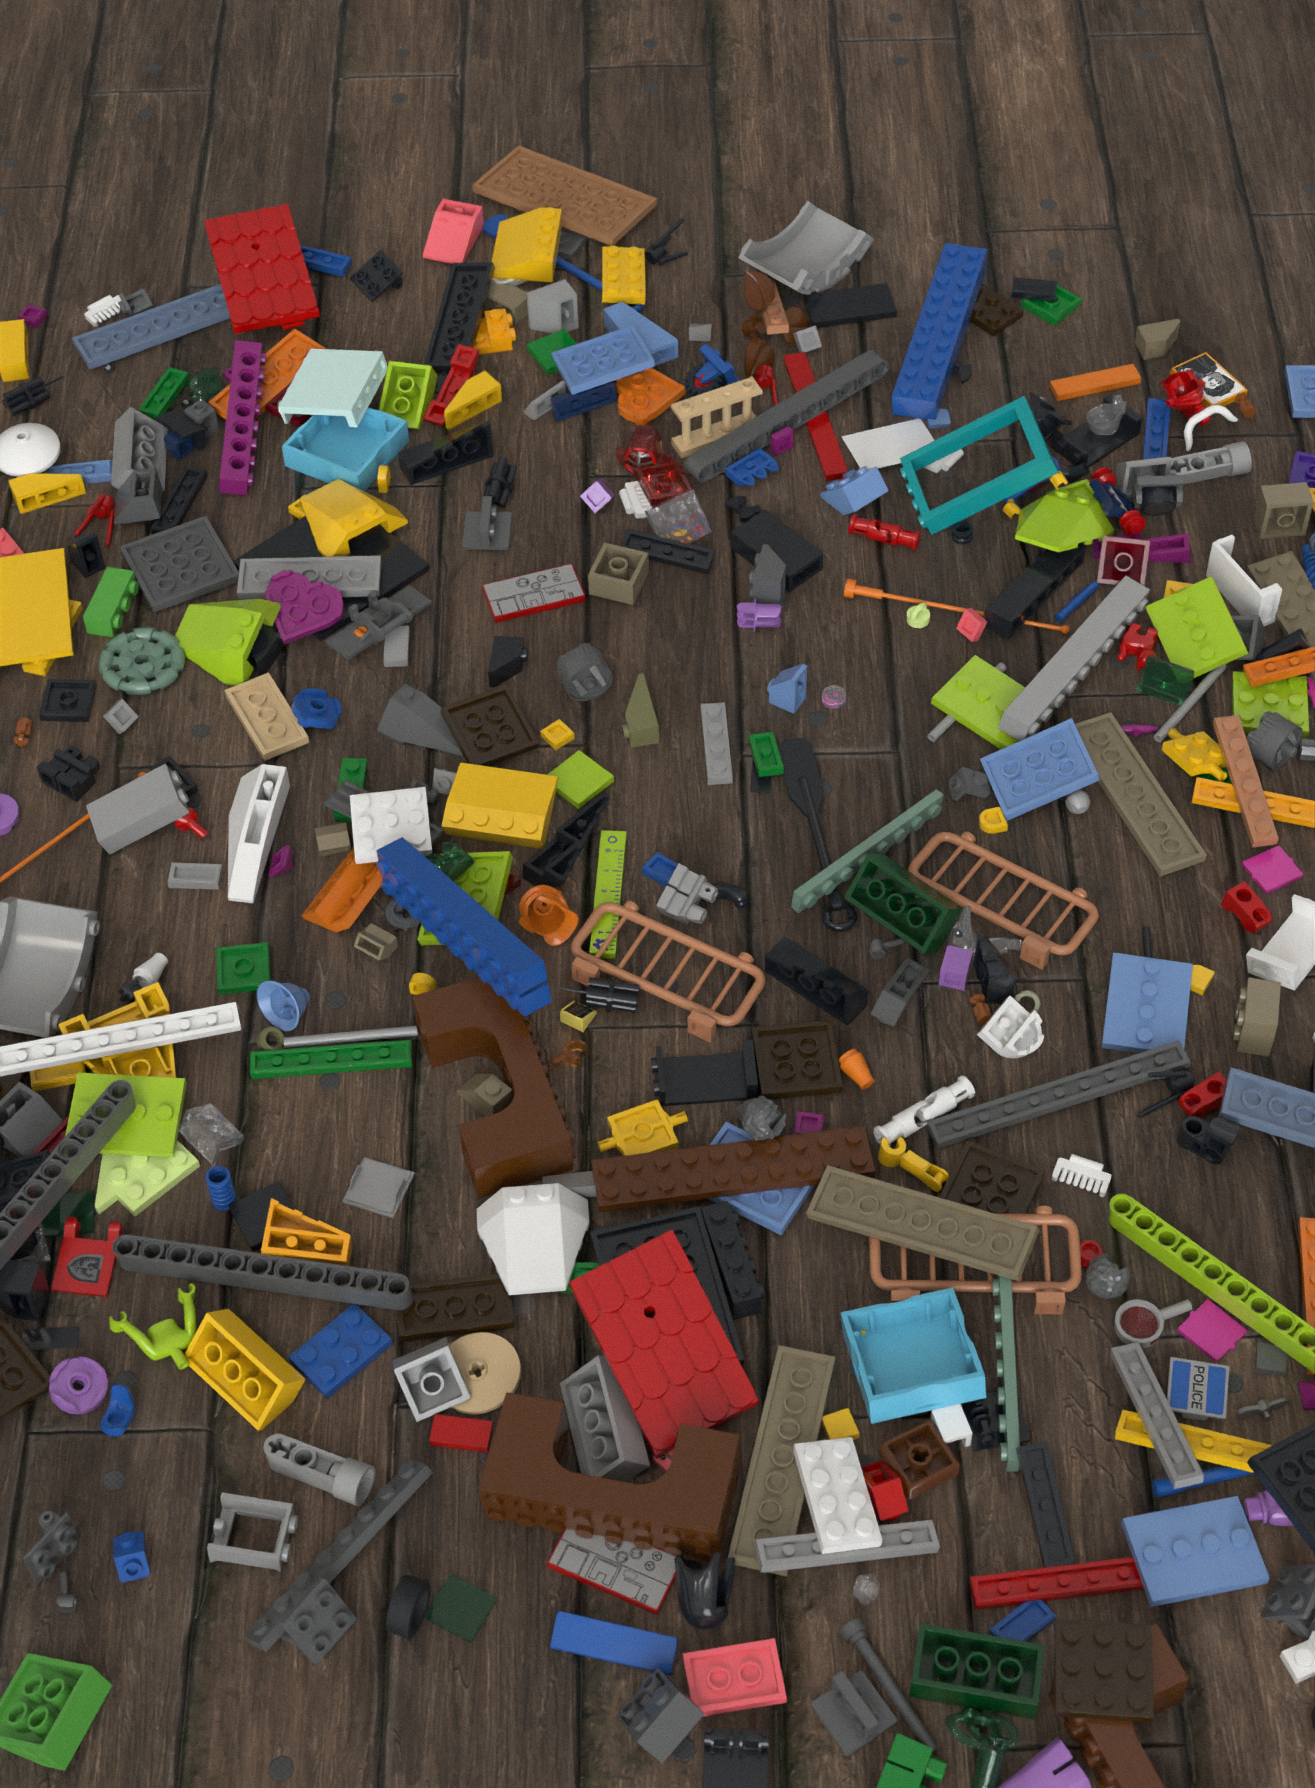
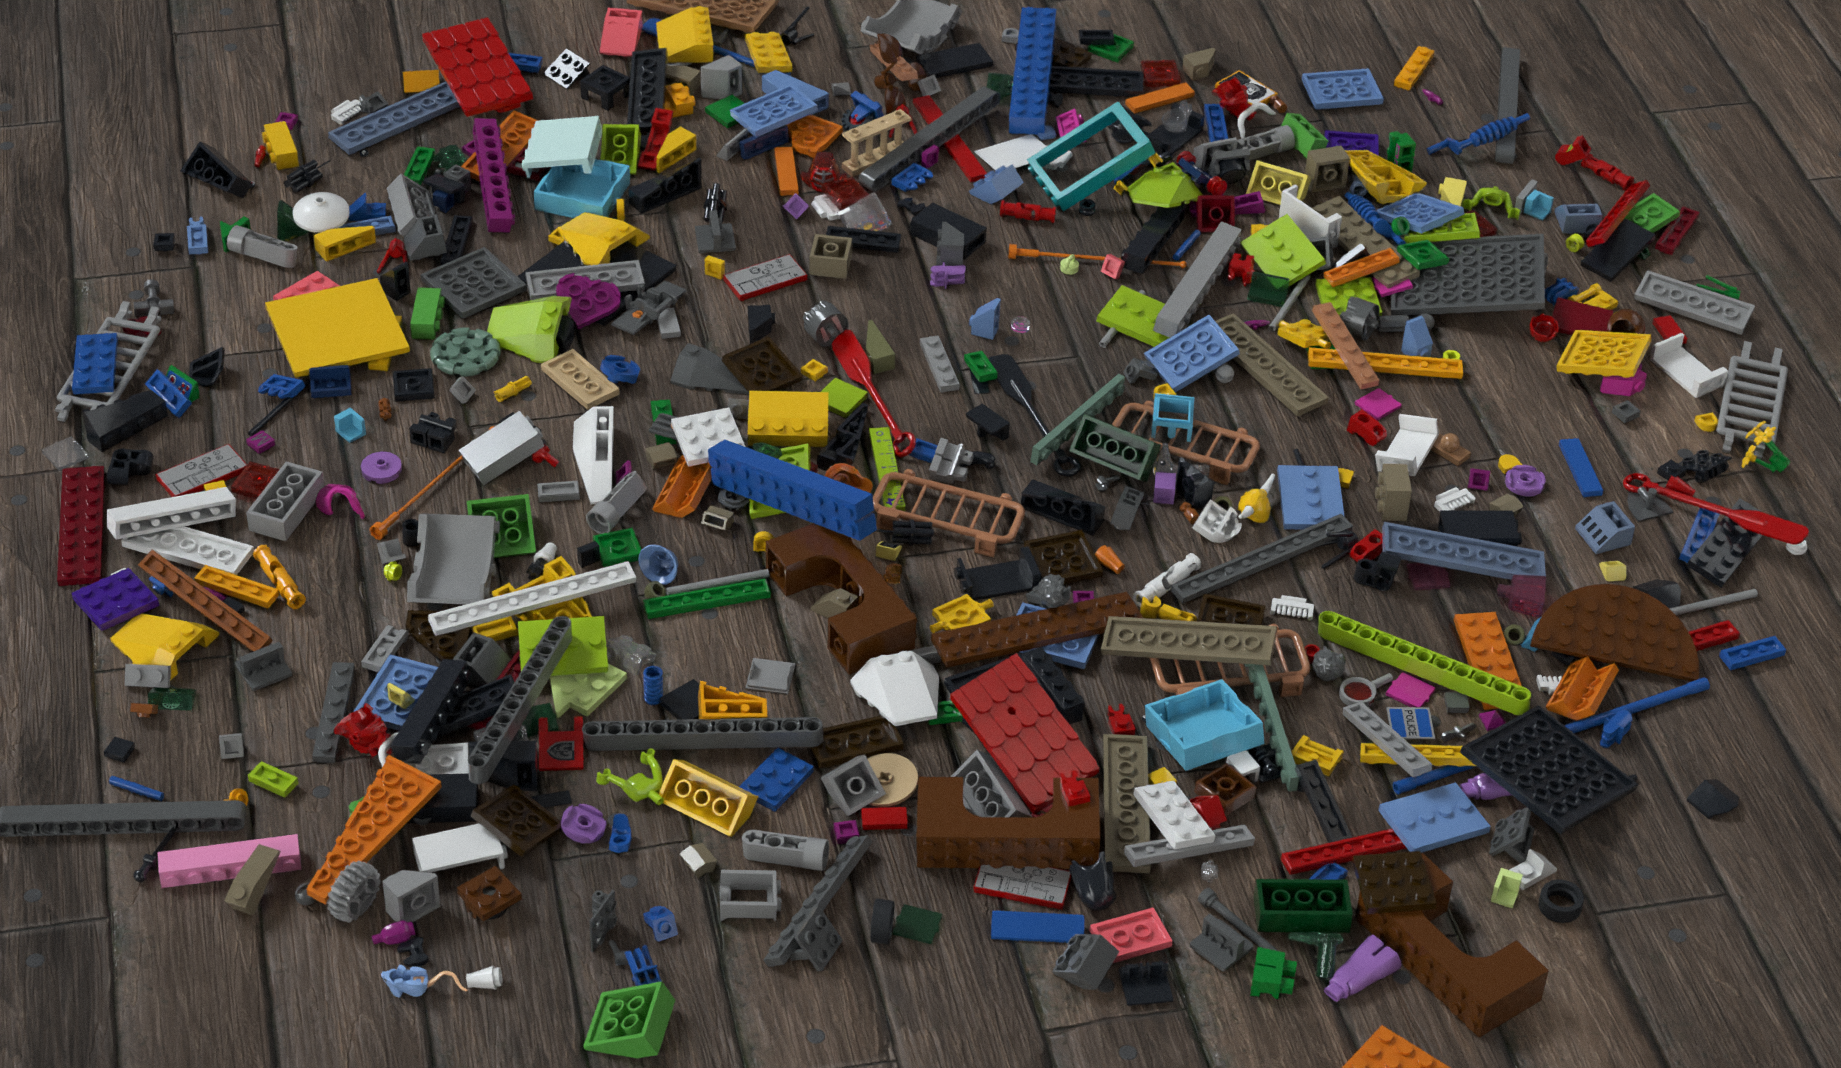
camera: 15 degrees left, 10 degrees down
(85, 450) = (361, 210): none -> blue slope
(86, 1630) = (642, 966): none -> blue arm
(122, 920) = (515, 519): none -> bright green slope
(182, 720) = (512, 388): none -> yellow axle
(198, 277) = (420, 80): none -> light orange panel
(201, 975) = (588, 554): none -> black plate
(205, 1464) = (699, 859): none -> dark tan piece
(241, 918) = (608, 512): none -> light grey beam
(407, 1446) = (845, 830): none -> magenta tile
(411, 302) = (605, 83): none -> black panel
(473, 573) = (714, 267): none -> yellow tile
(601, 443) = (786, 171): none -> orange tile
(610, 740) = (858, 368): none -> red piece
(701, 1451) = (1074, 791): none -> red plate
(752, 840) = (989, 422): none -> black panel
(808, 1326) = (1120, 723): none -> red plate
(894, 345) = (1000, 83): none -> clear green plate
(926, 275) = (1010, 35): none -> light grey tile
(969, 408) = (1069, 121): none -> dark pink bracket
(996, 844) = (1173, 404): none -> medium azure window
(1019, 352) = (1096, 81): none -> black plate
(1053, 1426) = (1308, 750): none -> yellow plate
(1069, 1009) = (1256, 504): none -> yellow helmet
(1103, 347) = (1160, 73): none -> clear red plate
(1210, 521) = (1273, 180): none -> light yellow slope
(1268, 460) = (1305, 134): none -> bright green brick
(1270, 1683) = (1506, 888): none -> yellowish green panel
(1277, 1152) = (1428, 576): none -> clear pink piece

